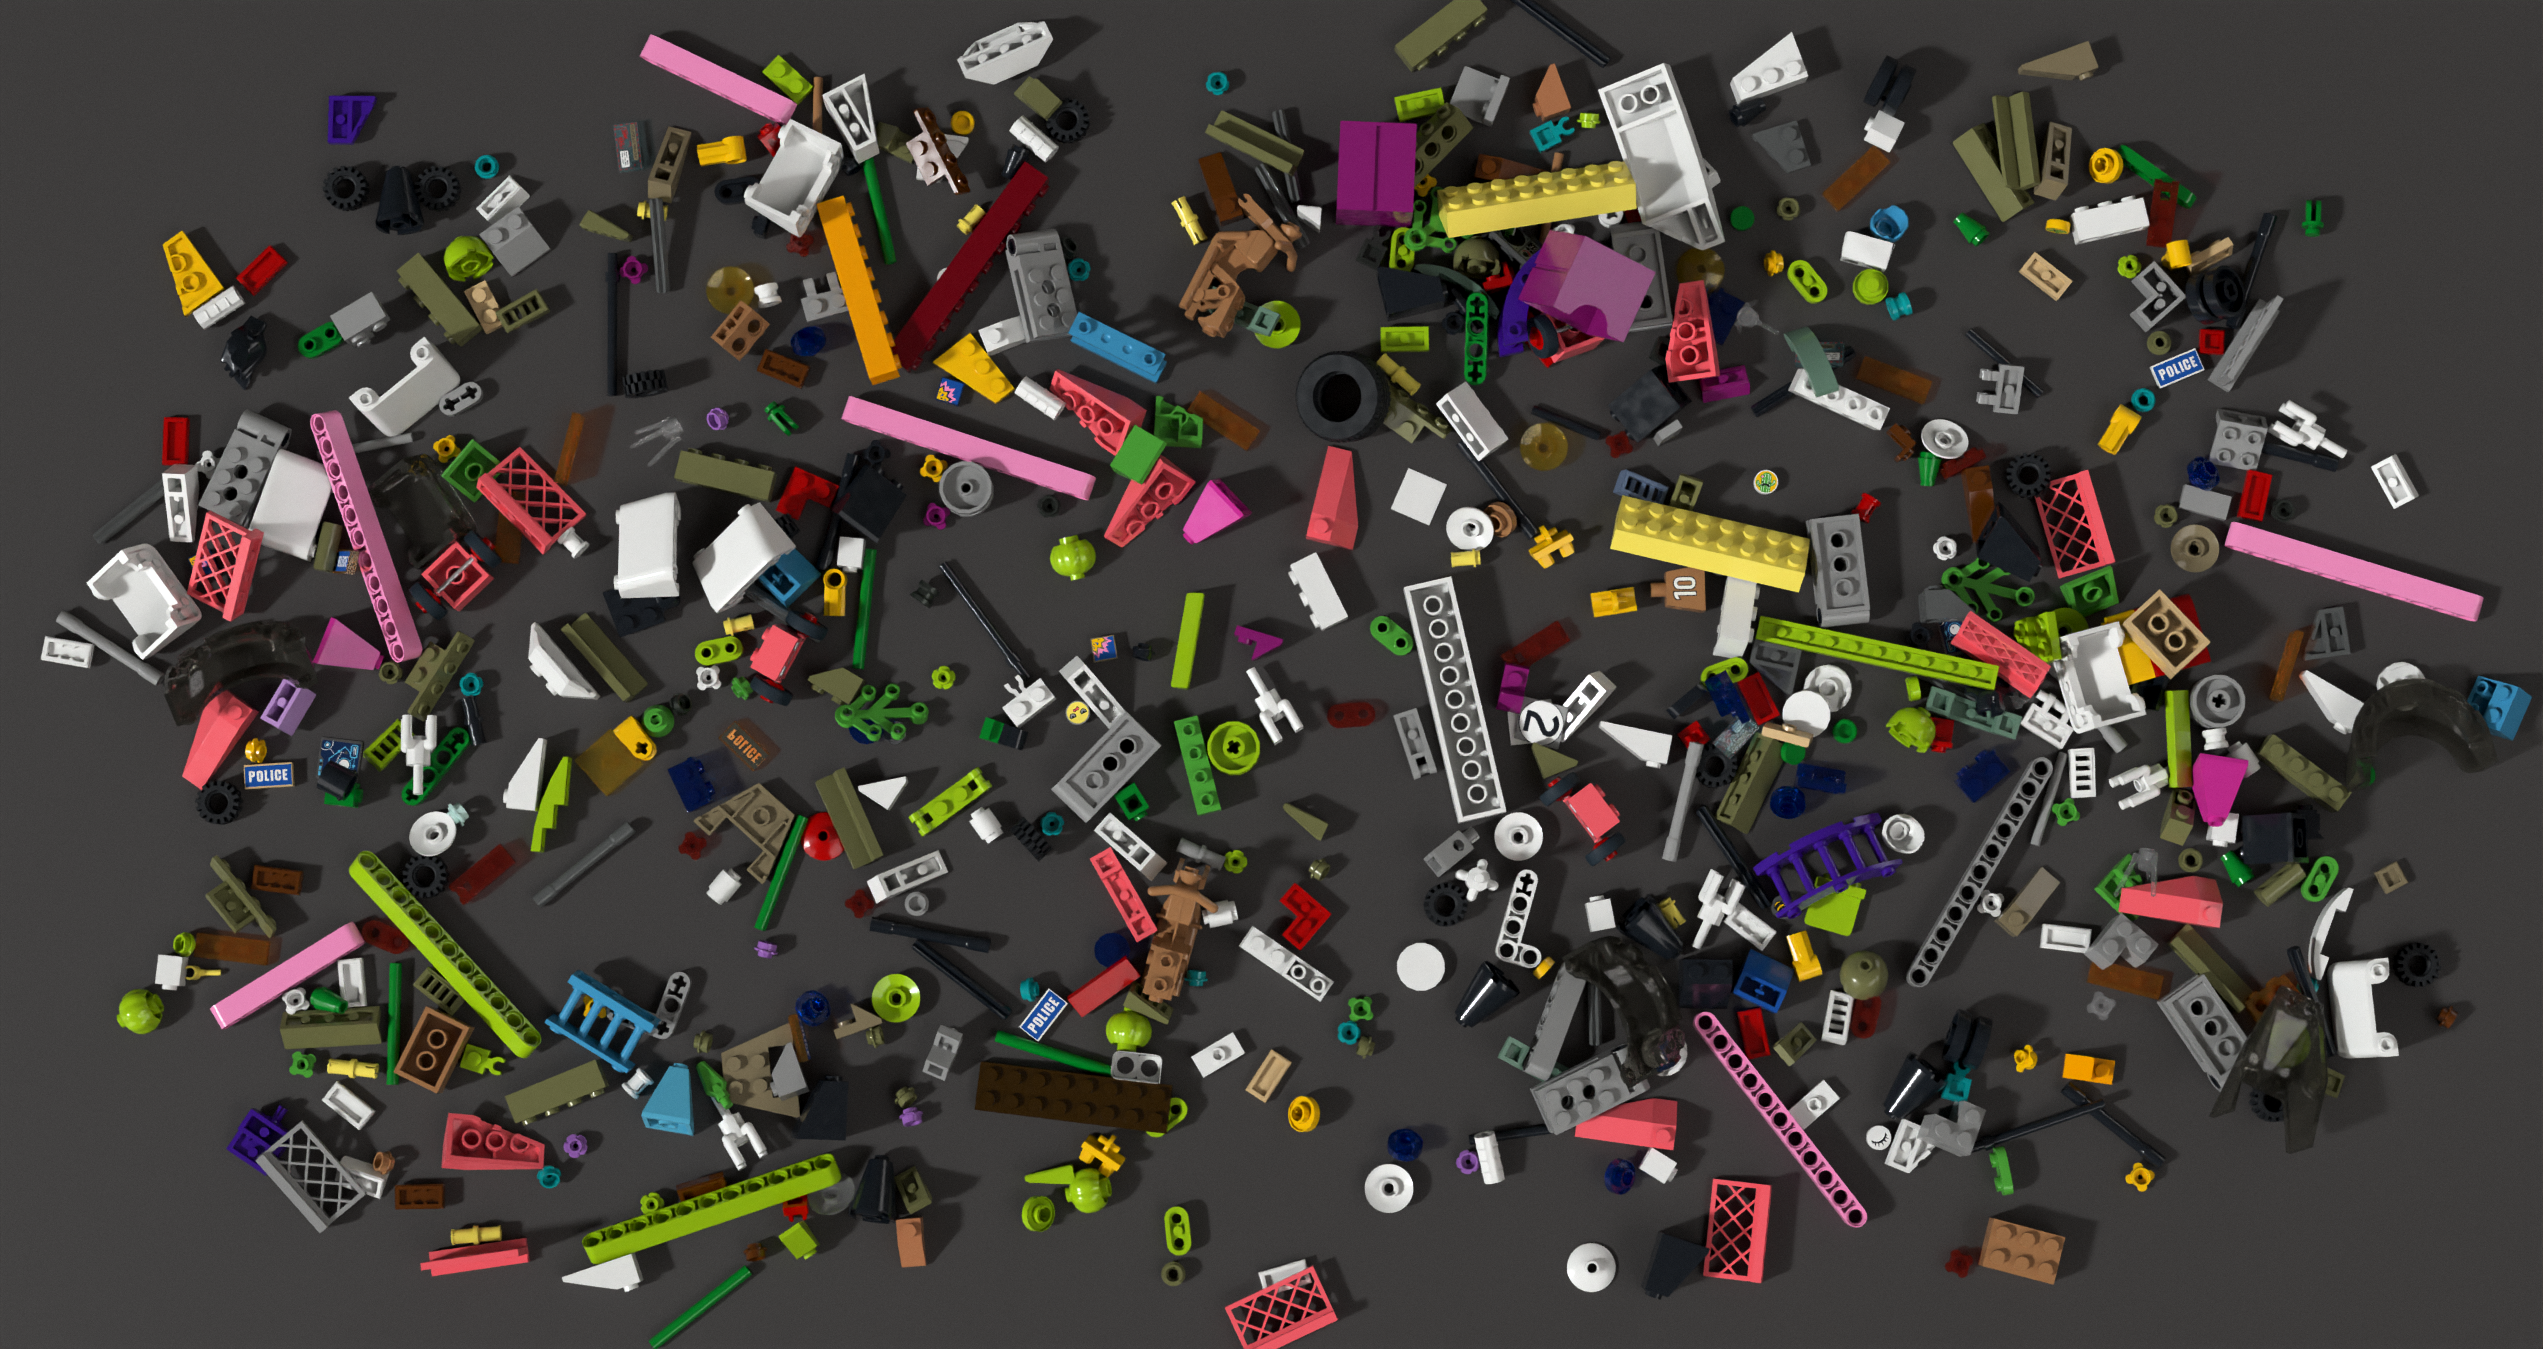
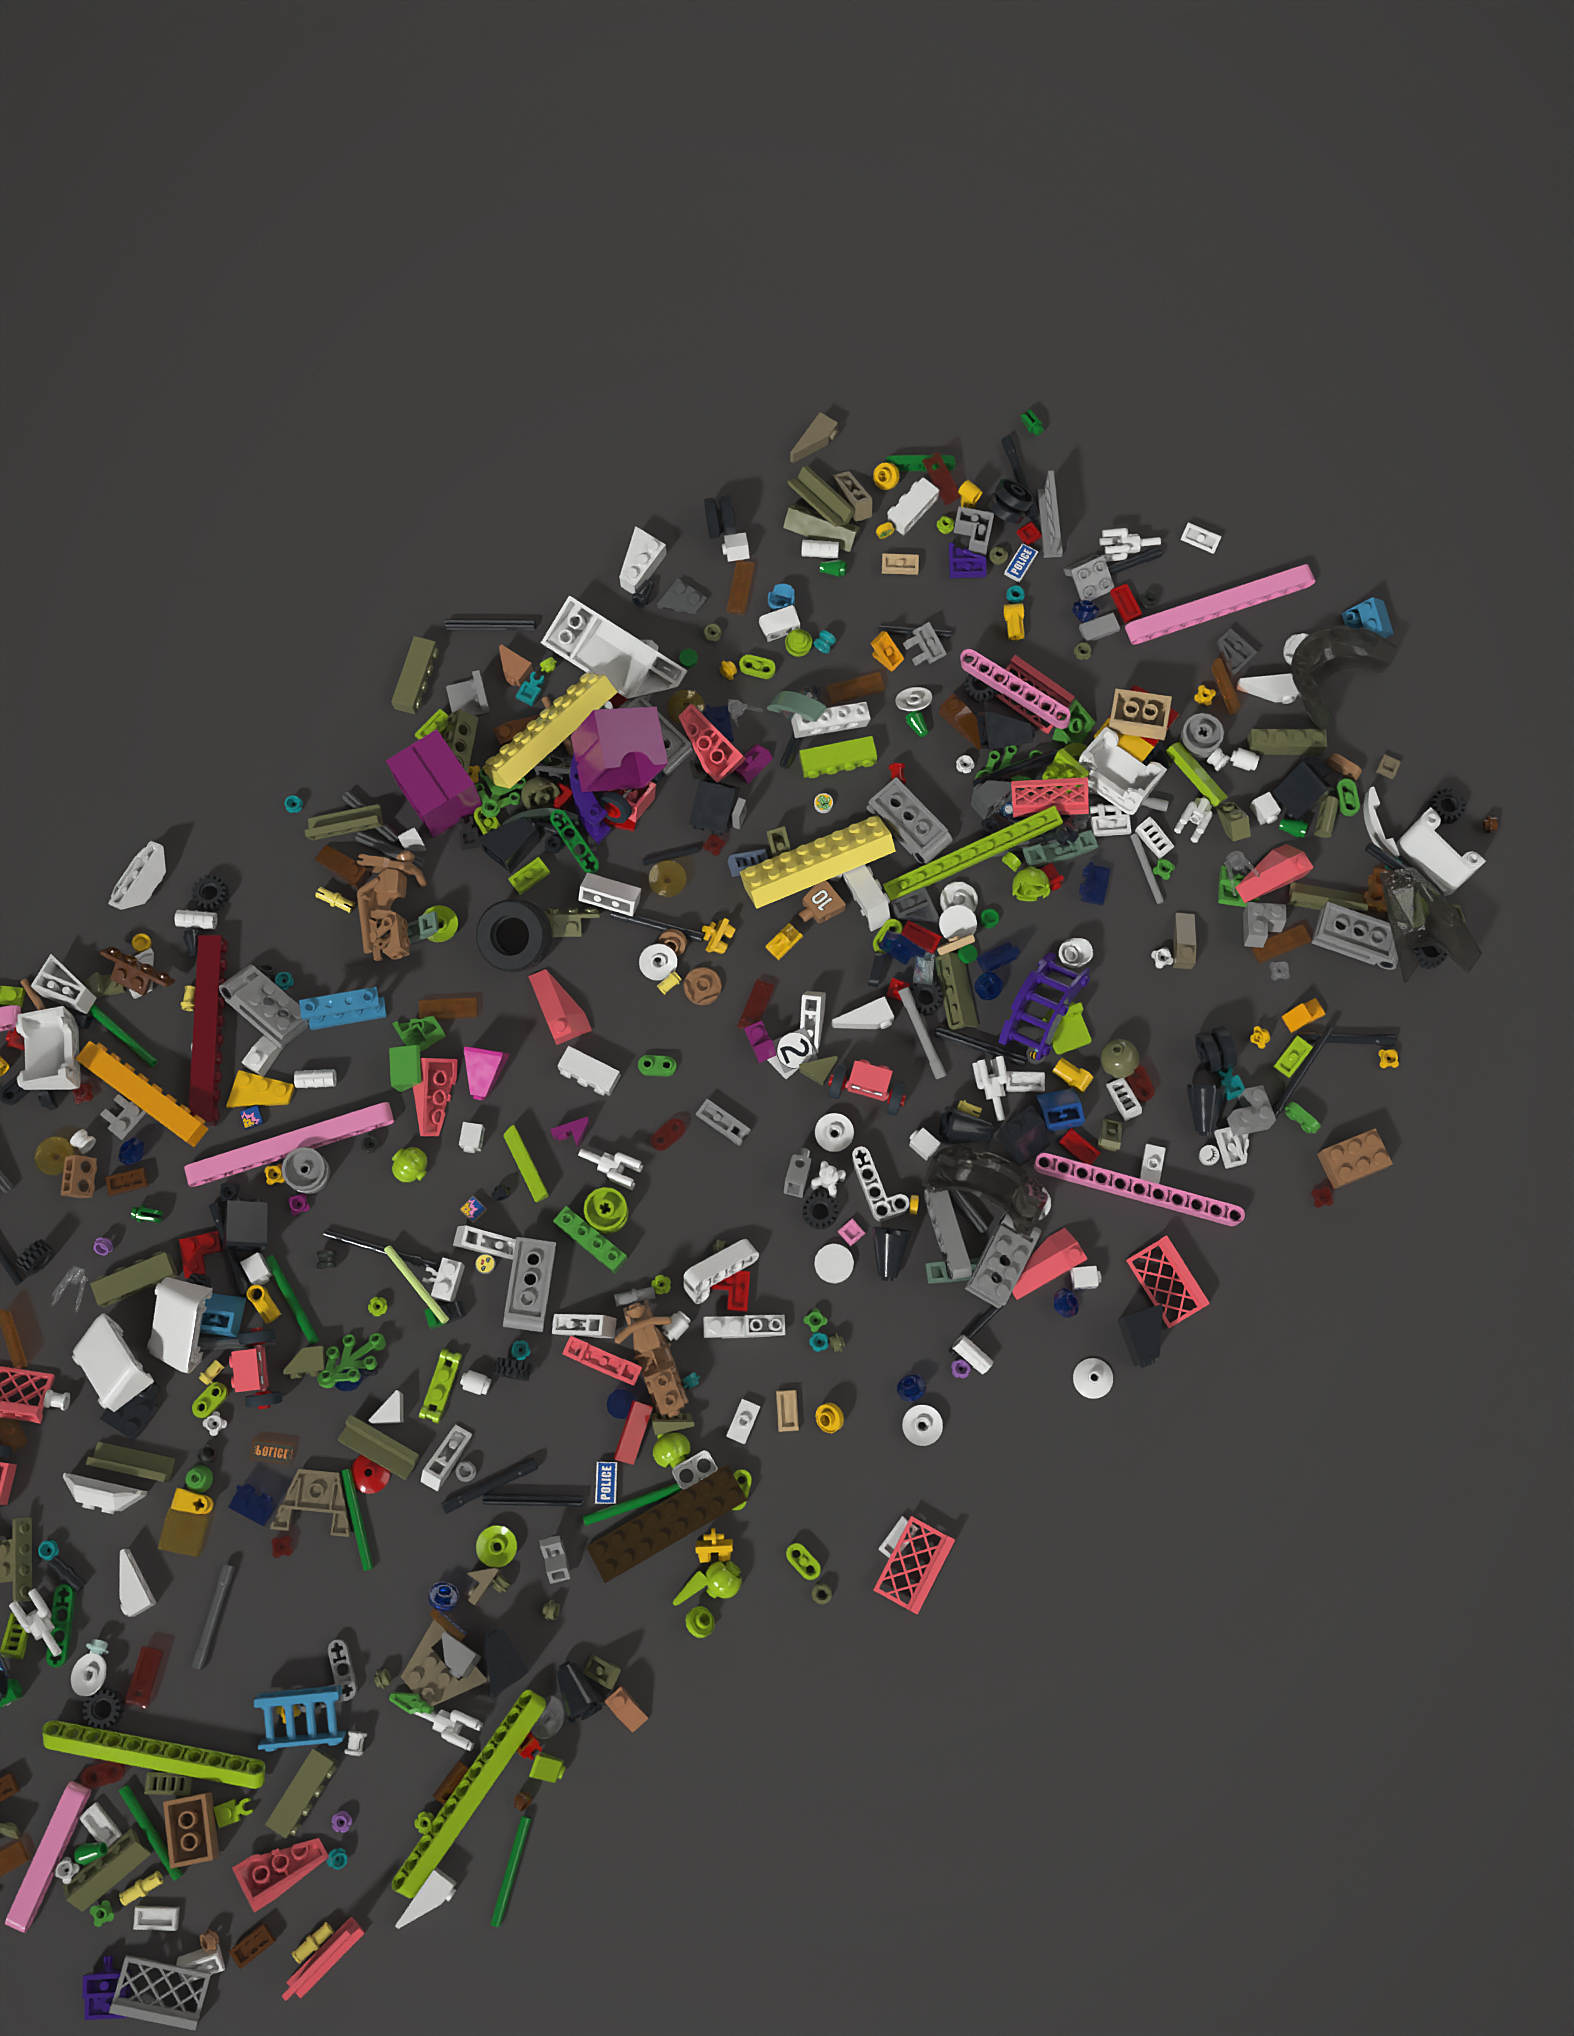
camera: 40 degrees left, 10 degrees down
(555, 794) = (160, 1582): lime slope -> none
(671, 1103) = (389, 1739): medium azure slope -> none
(724, 886) = (323, 1558): white brick -> none
(741, 687) = (242, 1413): bright green plate -> none
(766, 949) = (382, 1580): medium lavender plate -> none
(859, 897) = (429, 1506): clear red plate -> none
(911, 1117) = (565, 1621): medium lavender plate -> none
(996, 685) = (416, 1284): none -> yellowish green piece
(1029, 989) = (584, 1472): teal plate -> none
(1038, 97) = (179, 890): olive slope -> none
(1101, 410) = (361, 1058): coral wedge -> none
(1132, 793) = (559, 1290): green brick -> none
(1153, 574) = (471, 1137): none -> white brick
(1303, 888) = (718, 1267): none -> white beam
(1312, 824) = (693, 1222): olive slope -> none
(1398, 374) = (542, 900): light yellow pin -> none
(1418, 496) = (610, 967): white sticker -> none
(1454, 700) = (728, 1075): white brick -> none
(1461, 948) = (851, 1232): none -> bright pink tile
(1497, 586) = (702, 986): none -> medium nougat tile
(1818, 444) = (838, 757): none -> lime brick
(1901, 436) = (888, 717): reddish brown bracket -> none
(1953, 467) = (938, 699): clear red plate -> none
(1955, 365) = (886, 651): none -> light orange slope
(1972, 197) = (820, 549): none -> white axle
(1989, 865) = (1140, 951): light grey beam -> none
(1992, 595) = (1018, 768): none -> black axle
(2042, 1103) = (1292, 1056): none -> lime plate
(2055, 498) = (1018, 696): none -> bright pink beam
(2065, 938) = (1224, 945): white tile -> none
(2116, 326) = (965, 563): none -> dark purple wing
(2198, 860) = (1264, 838): olive plate -> none
(2206, 545) = (1118, 650): dark tan dish -> none
(2213, 254) = (989, 484): tan plate -> none
(2216, 785) = (1242, 783): dark pink slope -> none
(2255, 665) = (1204, 700): none -> yellow plate
(2342, 844) = (1344, 766): none -> medium nougat beam

